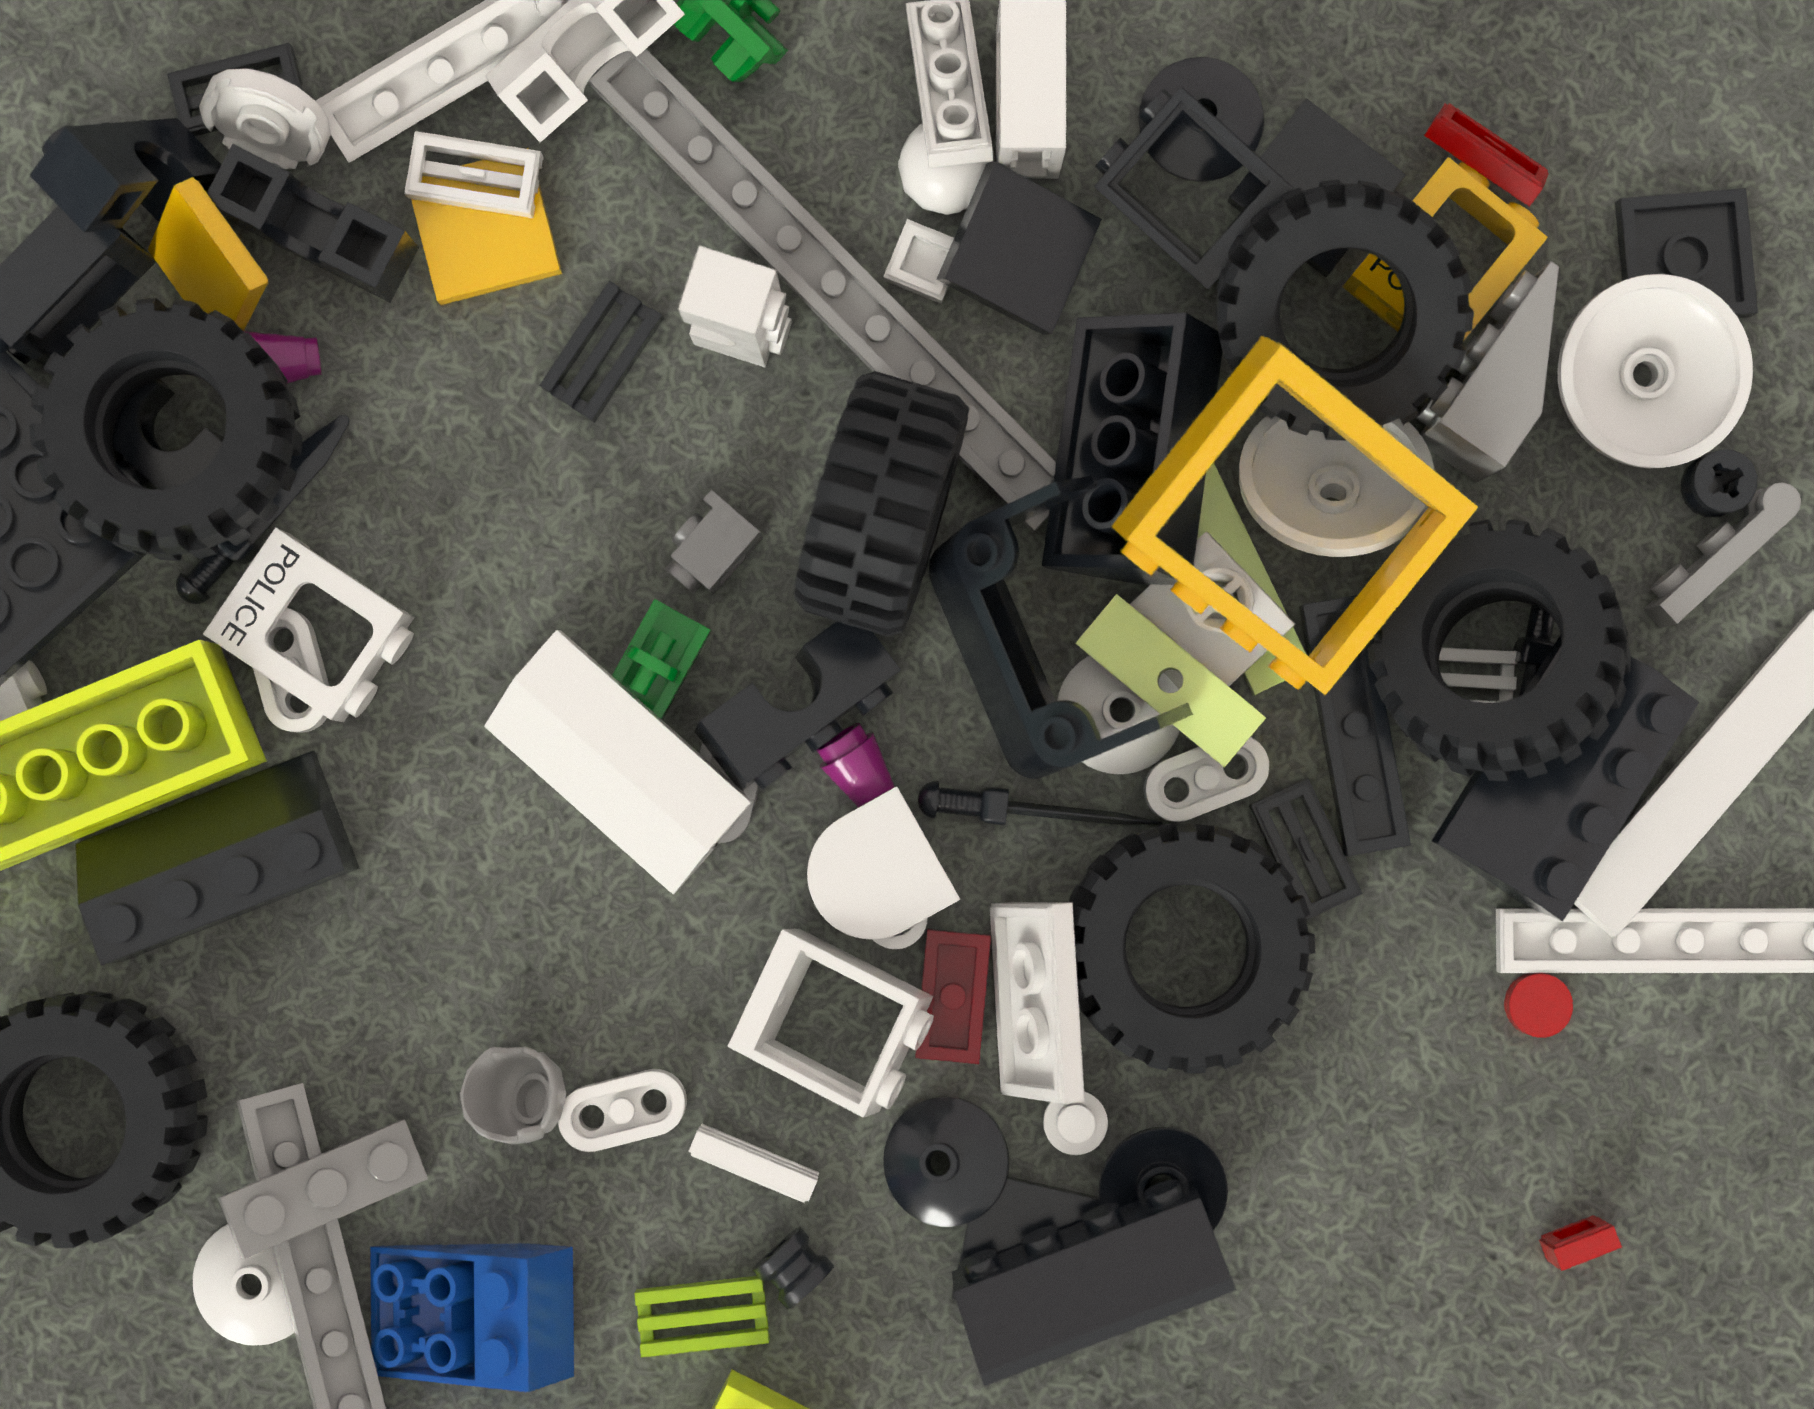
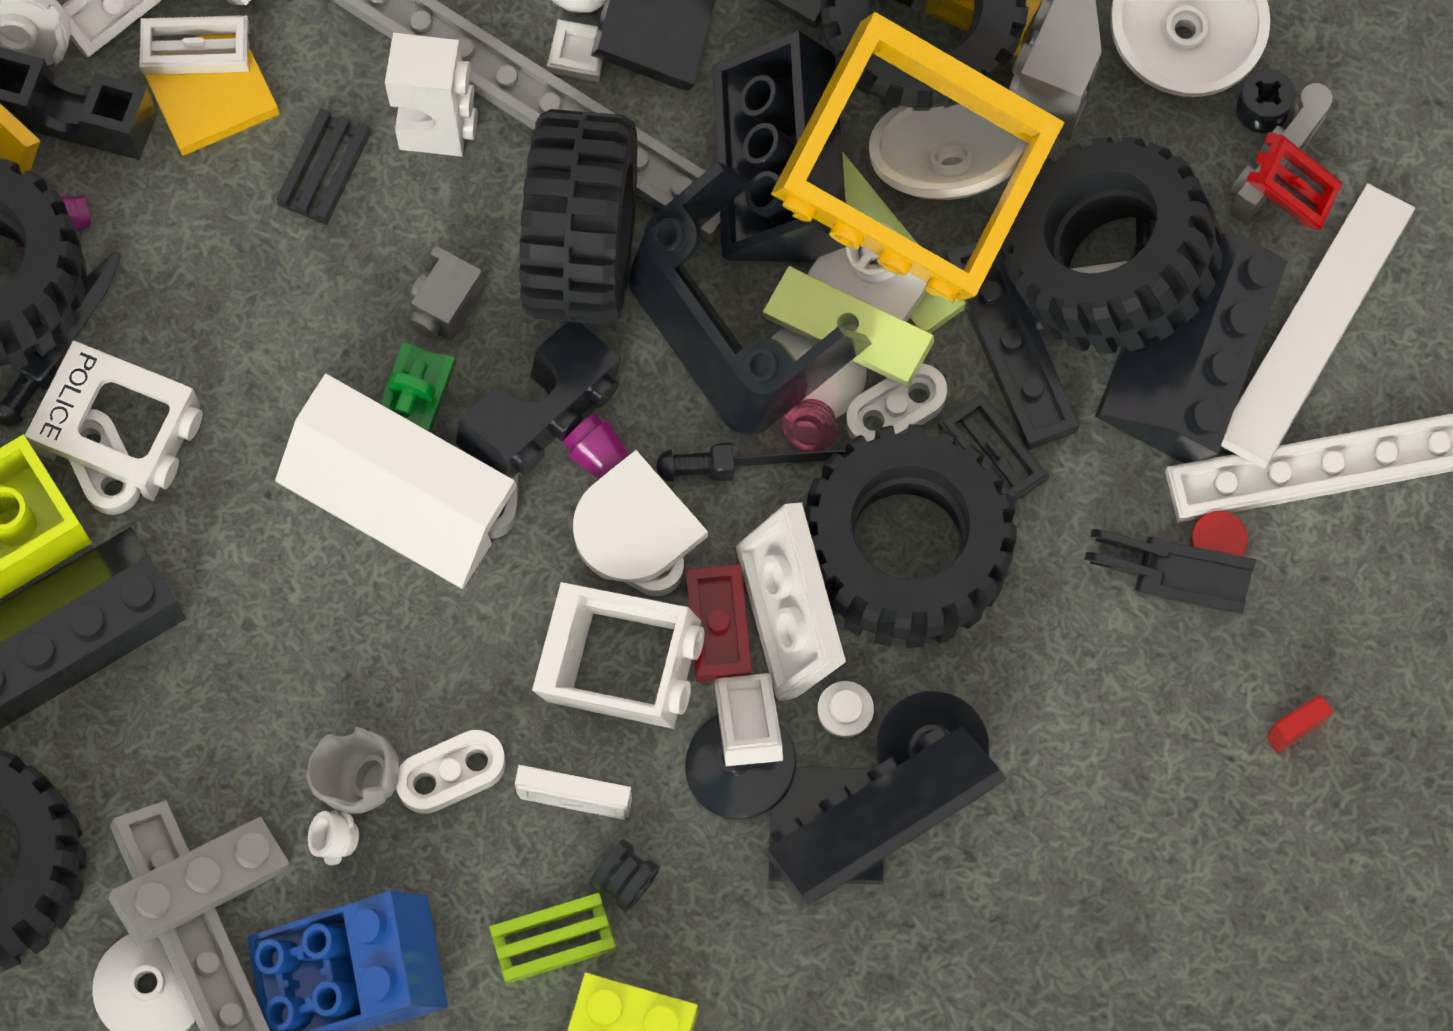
camera: 10 degrees left, 15 degrees down
(479, 1161) = (333, 836): none -> white plate
(963, 1125) = (748, 719): none -> white tile
(1103, 783) = (810, 425): none -> clear pink plate
(1488, 1039) = (1180, 571): none -> black arm
(1712, 587) = (1271, 167): none -> red tile

